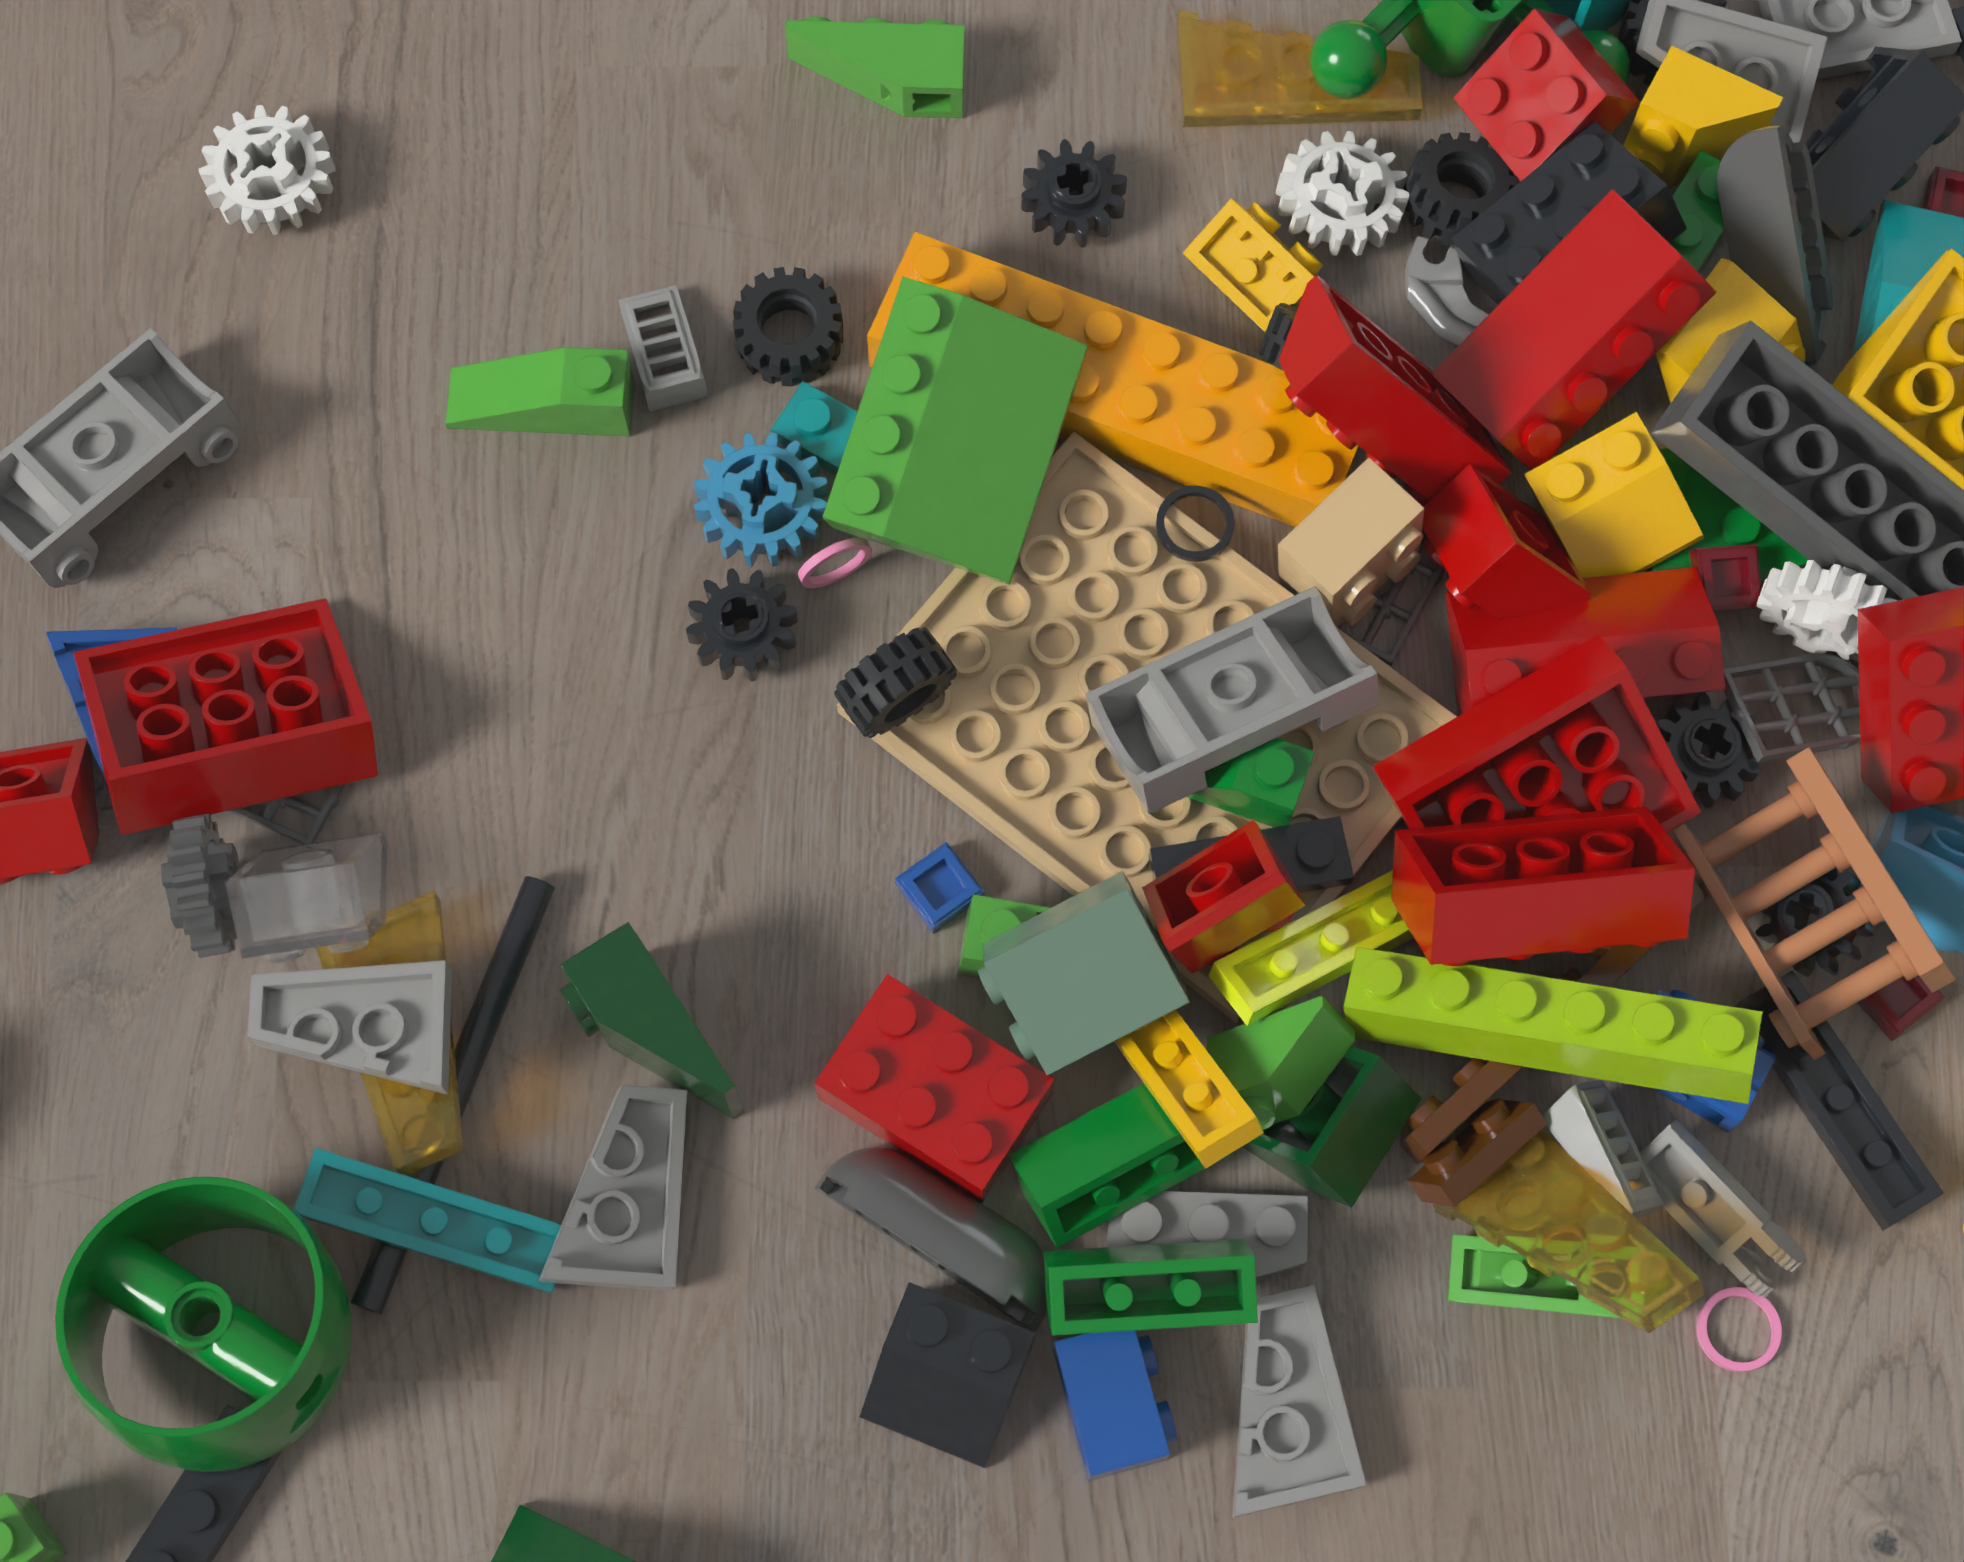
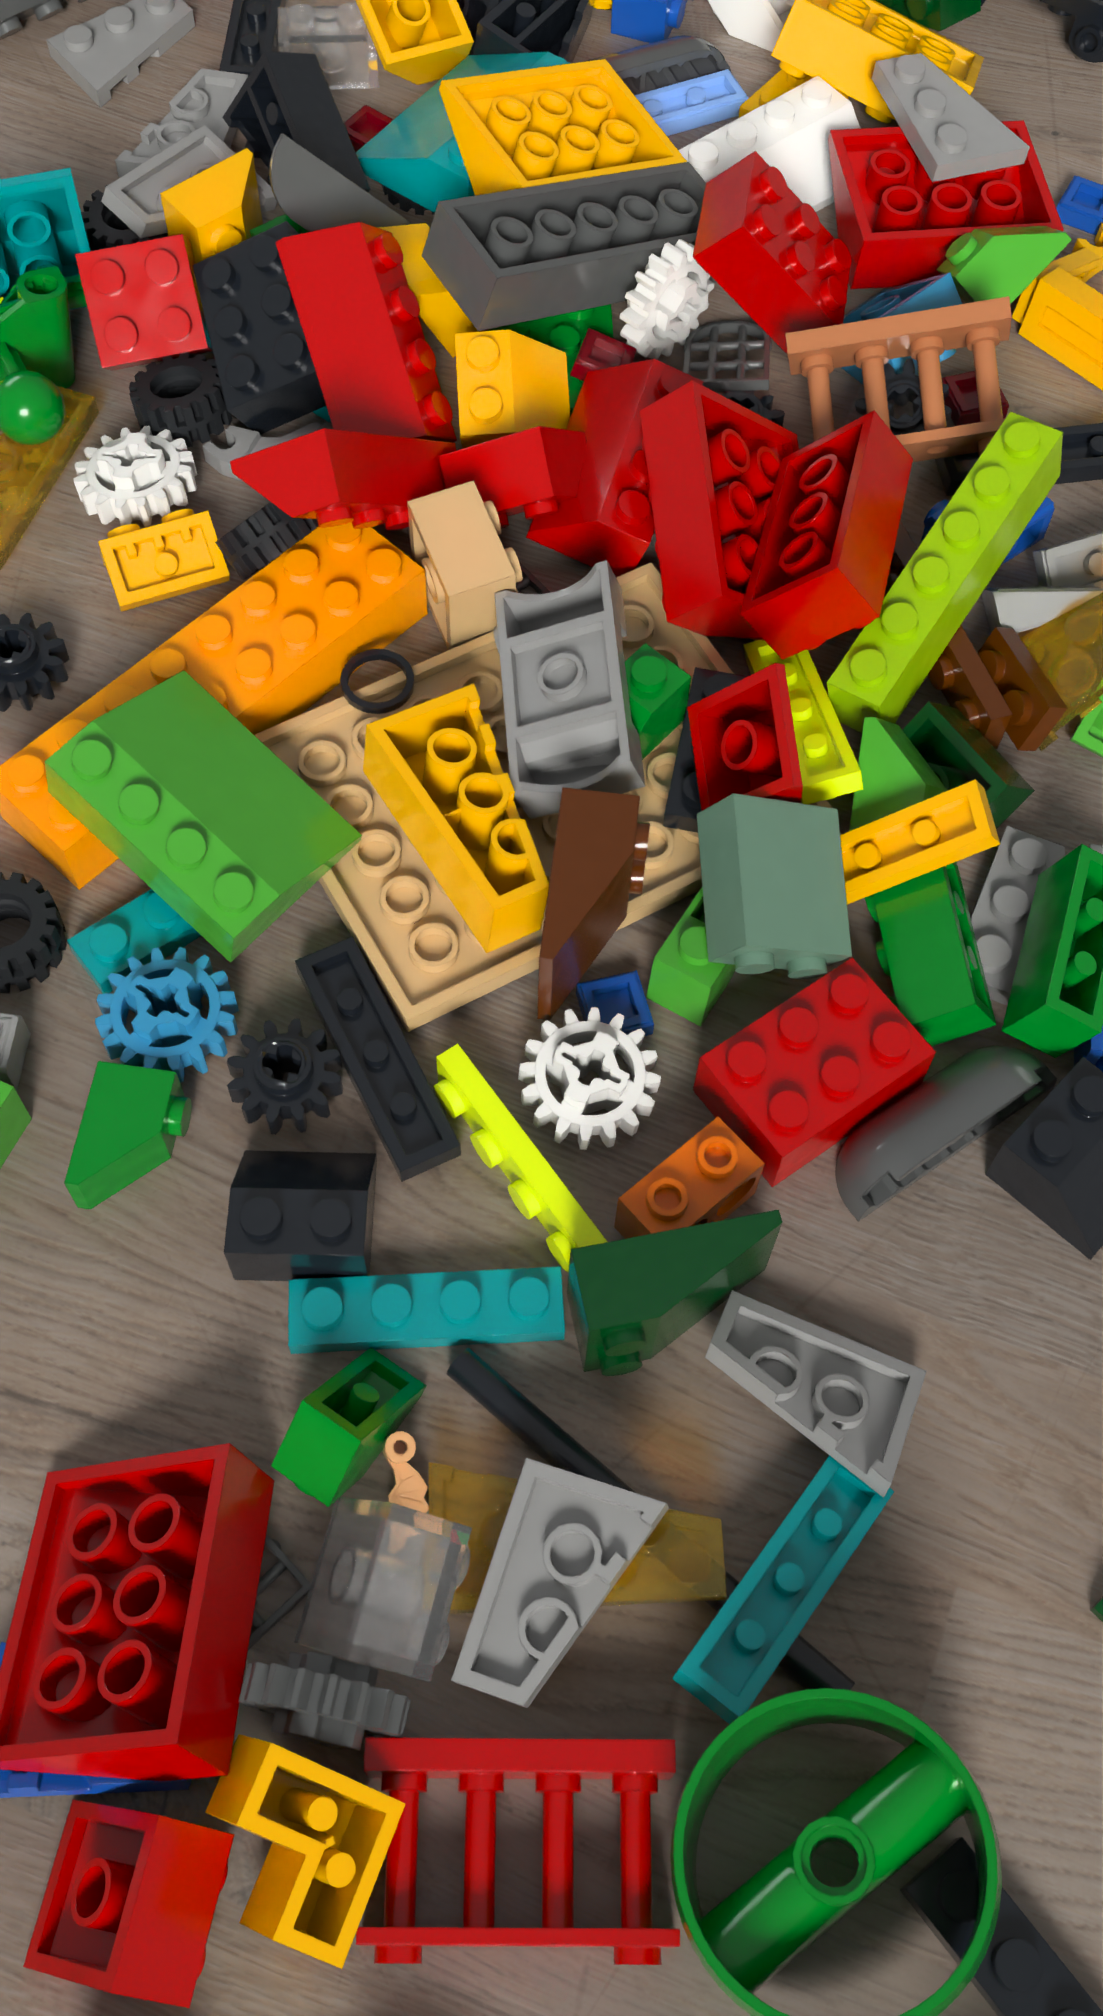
camera: 70 degrees left, 10 degrees down
(109, 925) = (323, 1850): none -> yellow brick
(205, 1033) = (557, 1772): none -> red fence
(408, 886) = (409, 1485): none -> light nougat piece
(446, 813) = (345, 1425): none -> green slope
(574, 830) = (425, 1310): none -> teal plate
(622, 695) = (301, 1215): none -> black slope
(635, 515) = (125, 1130): none -> green slope
(750, 840) = (504, 1143): none -> neon yellow plate
(761, 1018) = (693, 1185): none -> orange brick
(792, 696) = (378, 1059): none -> black plate
(819, 558) = (266, 972): bright pink piece -> none
(819, 884) = (608, 1092): none -> white gear
(895, 682) = (425, 942): black tyre -> none
(1004, 802) = (593, 870): none -> reddish brown slope
(1073, 638) = (460, 813): none -> yellow wedge

